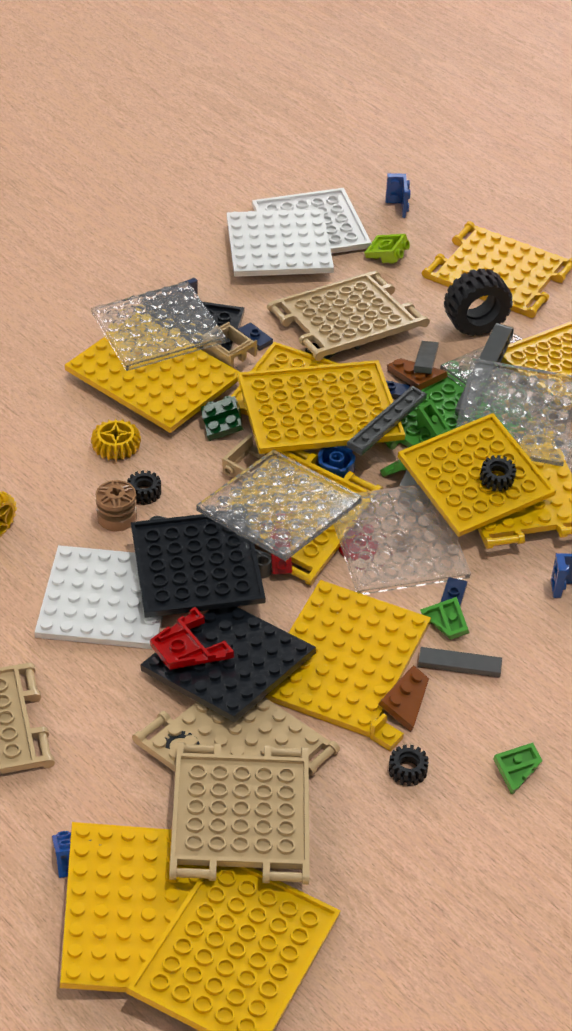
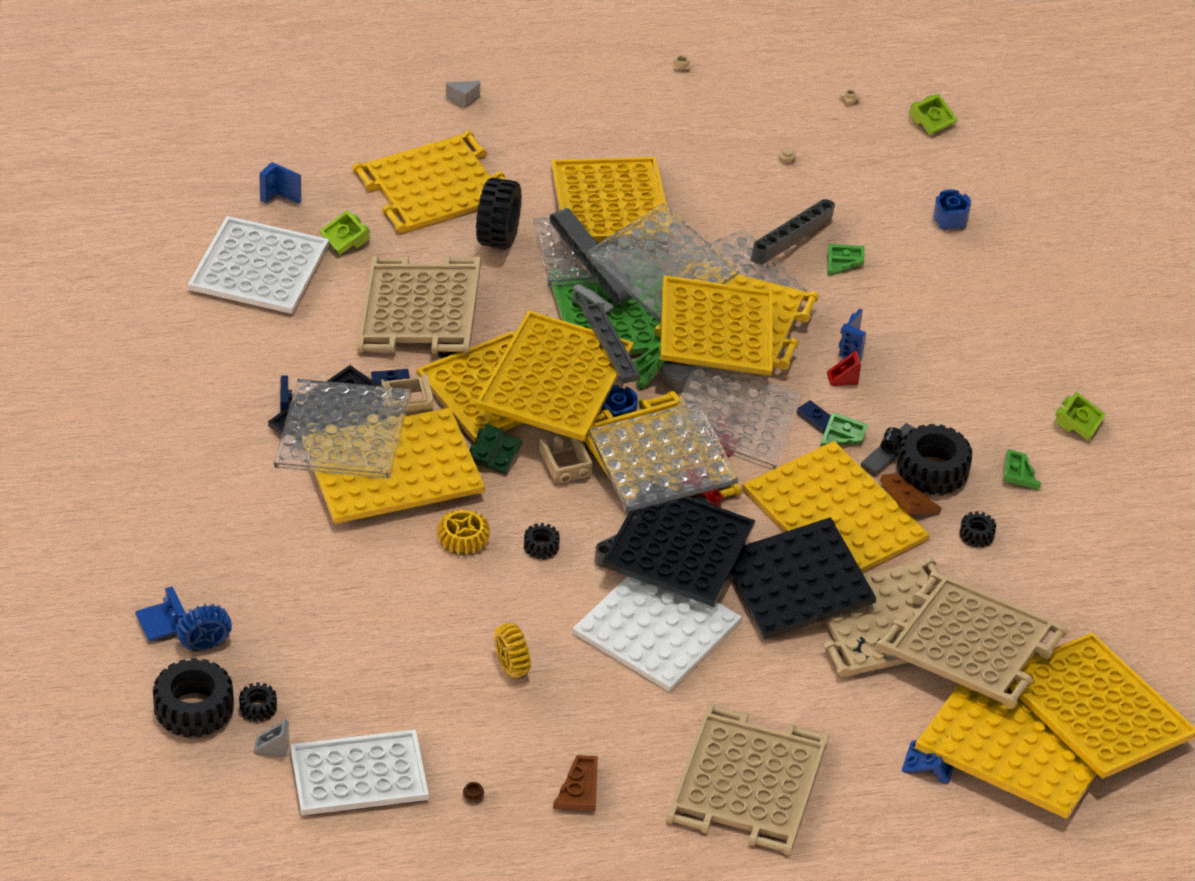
camera: 60 degrees left, 0 degrees up
(116, 505) = (559, 566): medium nougat wheel -> none
(181, 648) = (772, 597): red wing -> none
(279, 242) = (275, 297): white plate -> none
(385, 734) = (936, 527): yellow bracket -> none
(405, 370) = (542, 301): dark orange wing -> none
(426, 357) = (525, 284): dark grey tile -> none
(431, 418) = (621, 319): bright green slope -> none
(445, 399) = (586, 296): none -> light grey panel
(460, 652) = (891, 440): none -> black wheel
(470, 673) = (939, 443): none -> black tyre
(501, 465) = (738, 303): black tyre -> none
(526, 590) = (846, 371): none -> red slope

